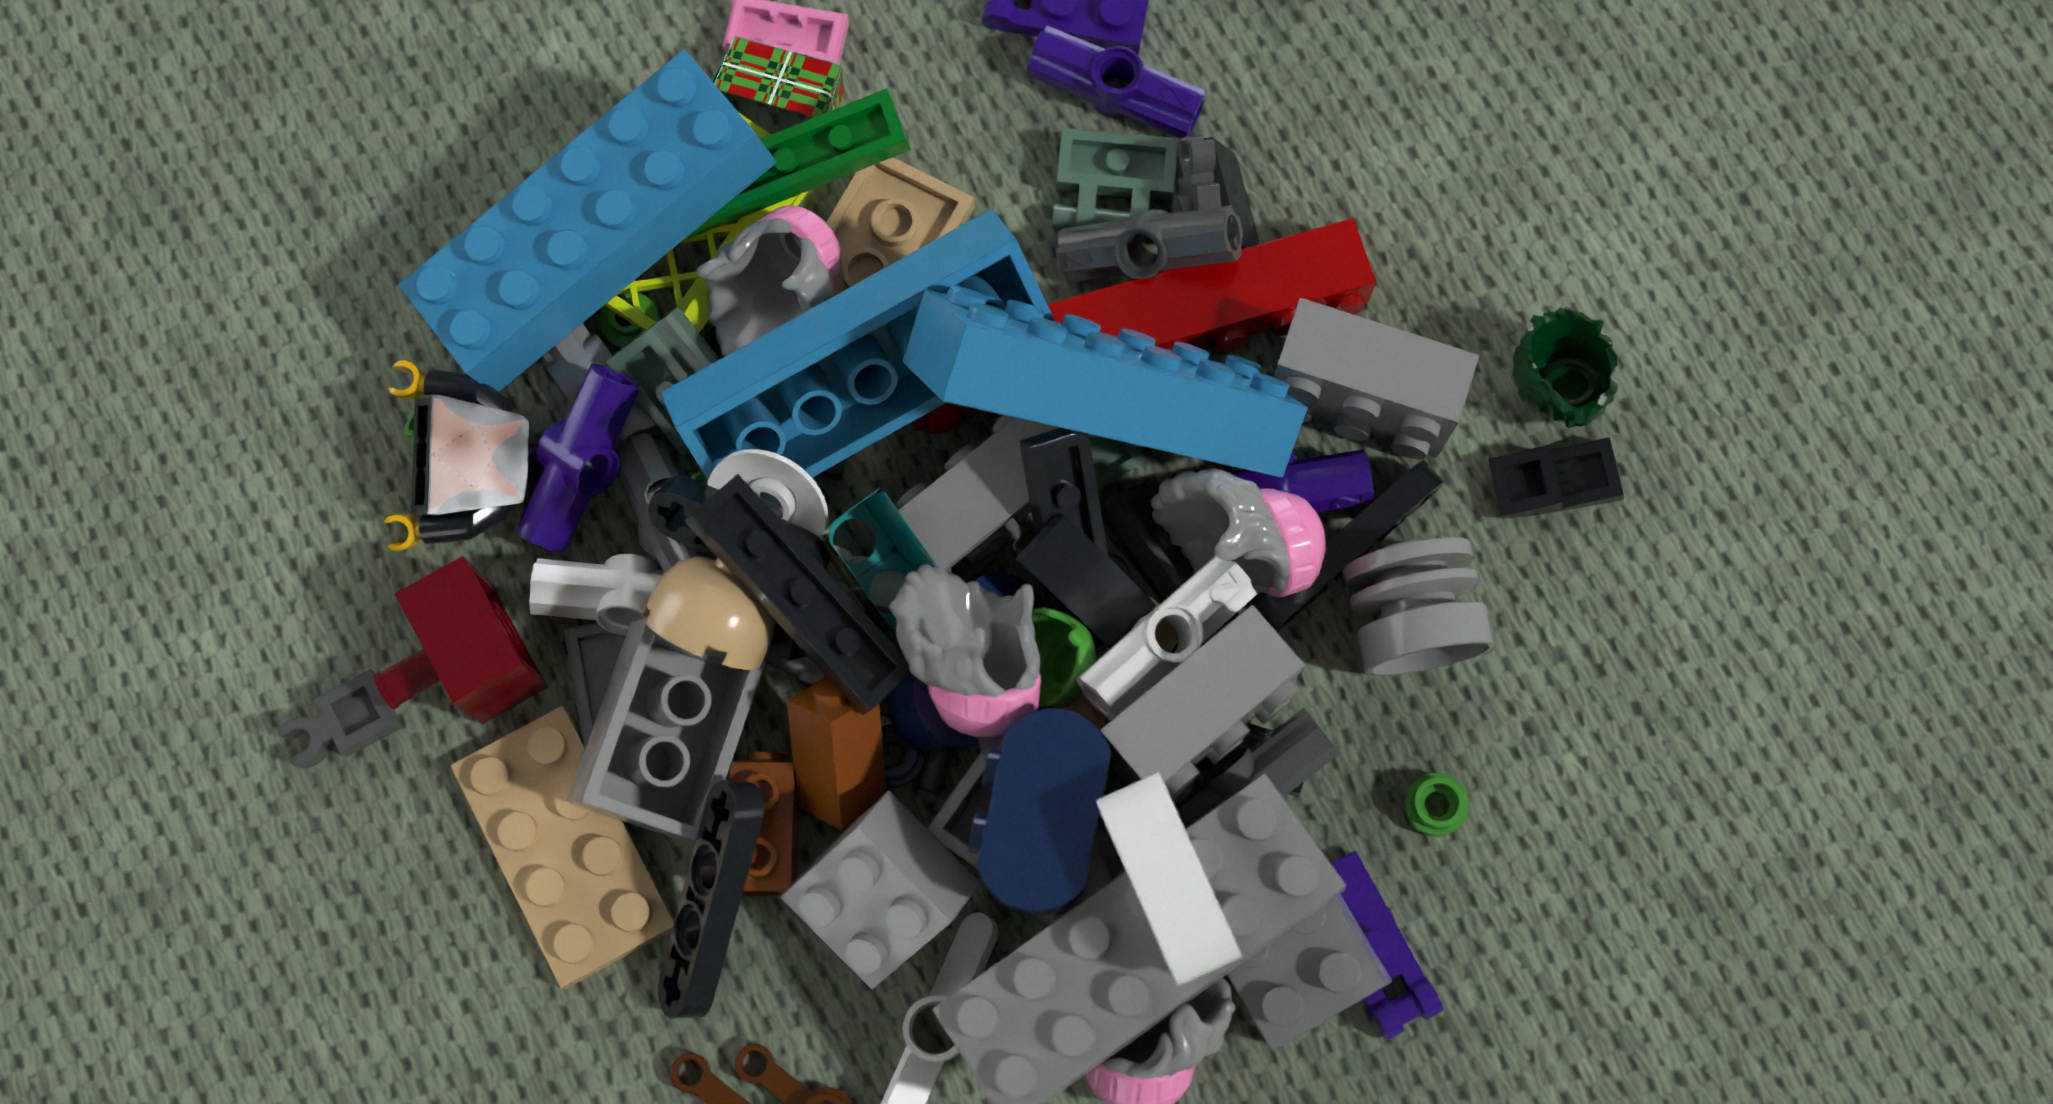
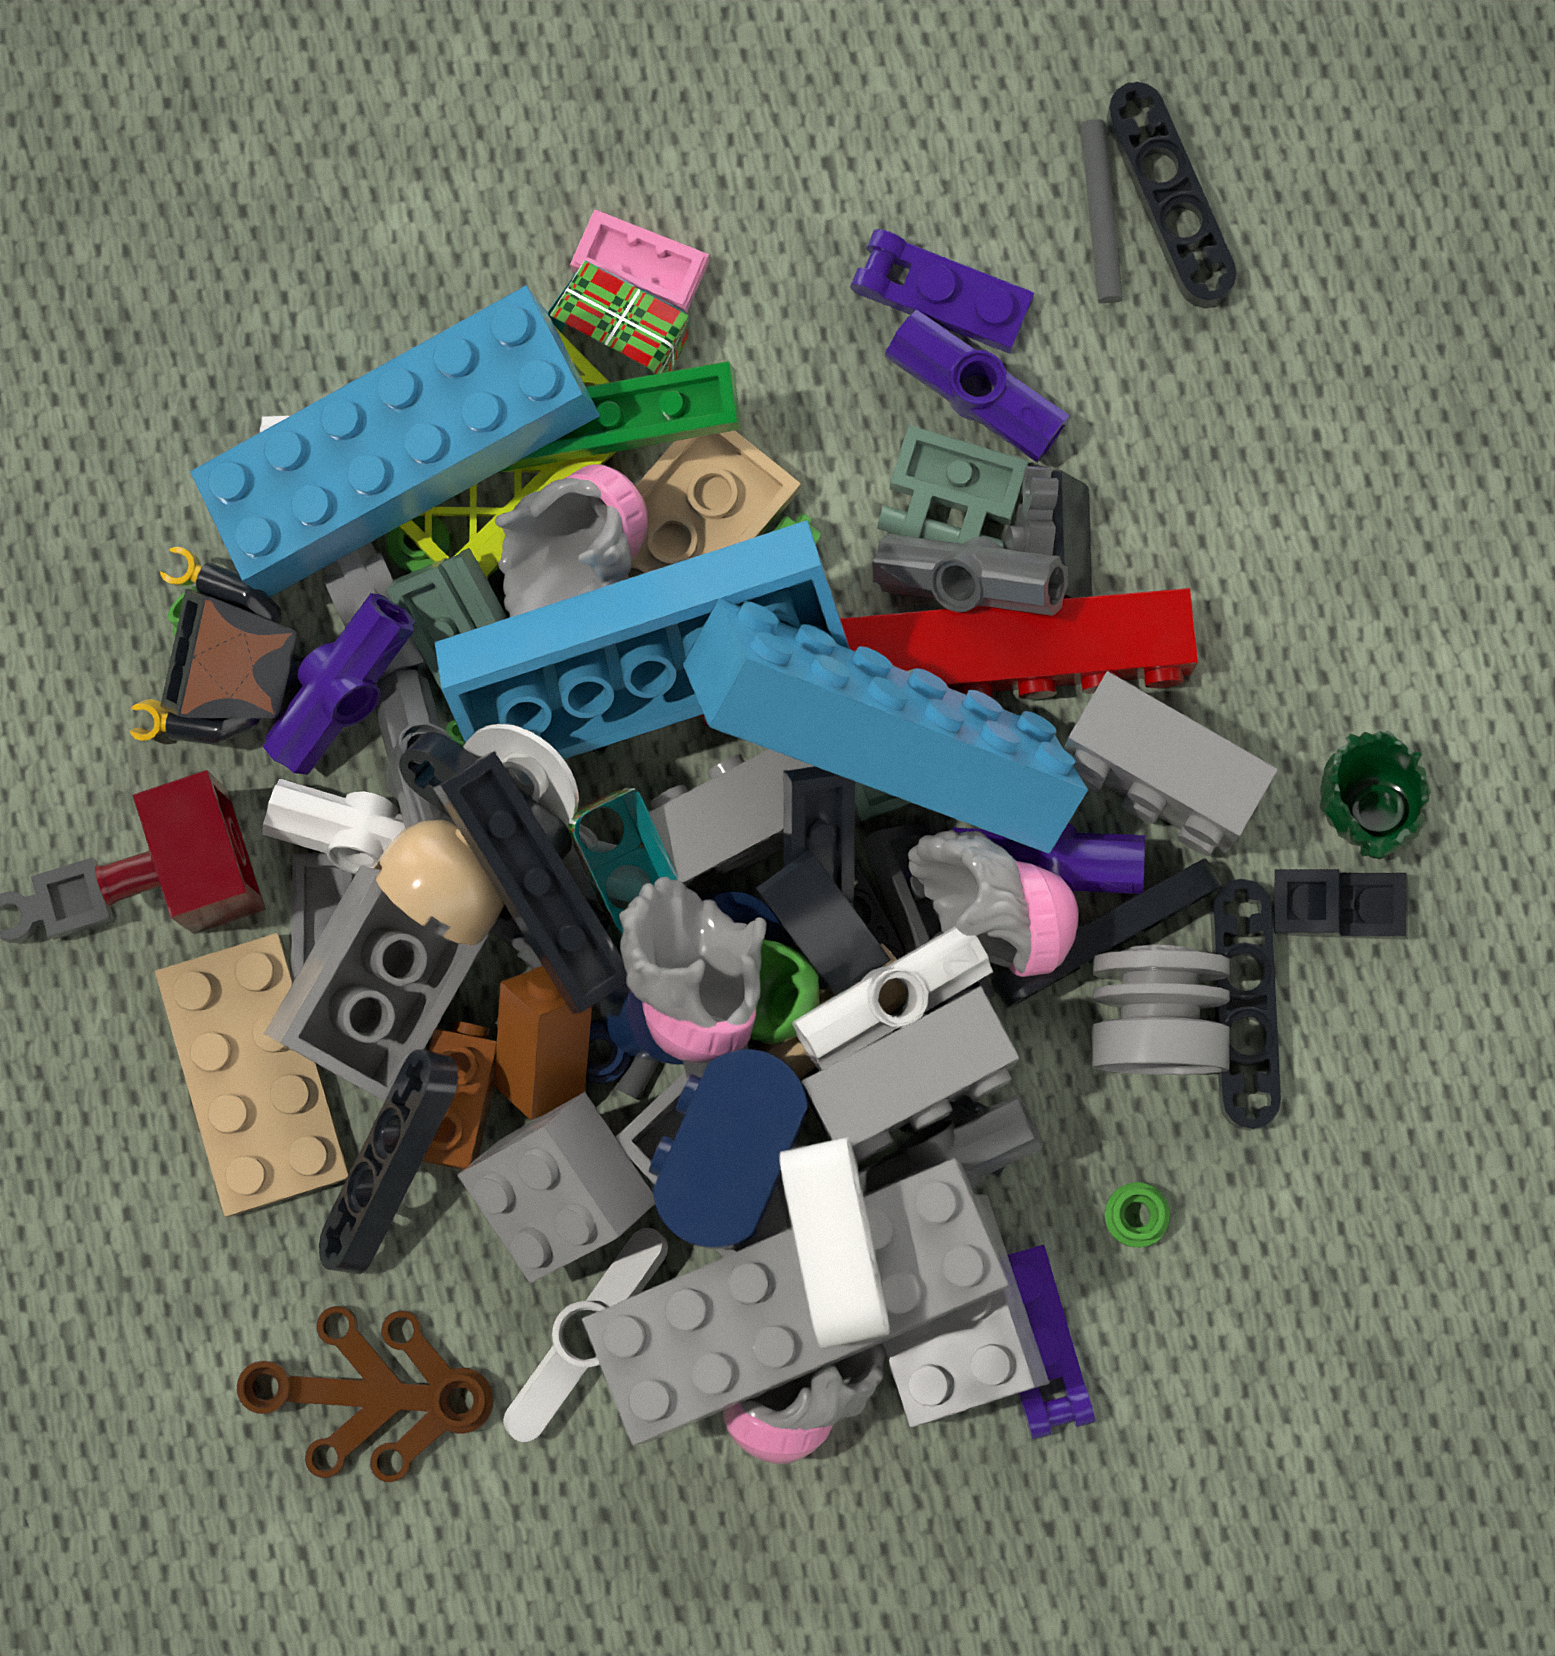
camera: 15 degrees right, 5 degrees up
(1499, 586) = (1252, 1004): none -> black beam

